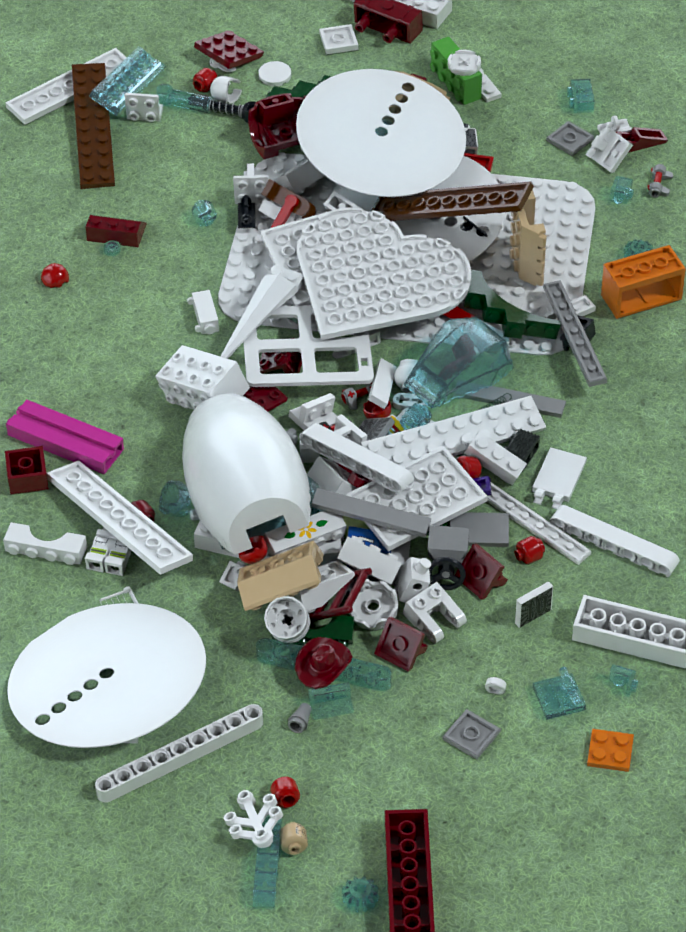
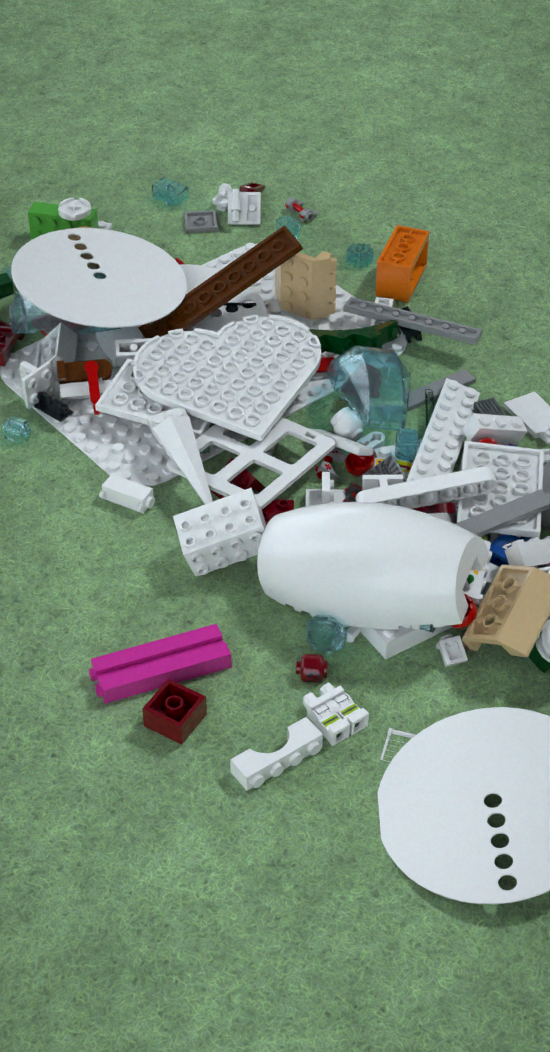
camera: 50 degrees left, 5 degrees down
(120, 517) = (312, 679): white plate -> none

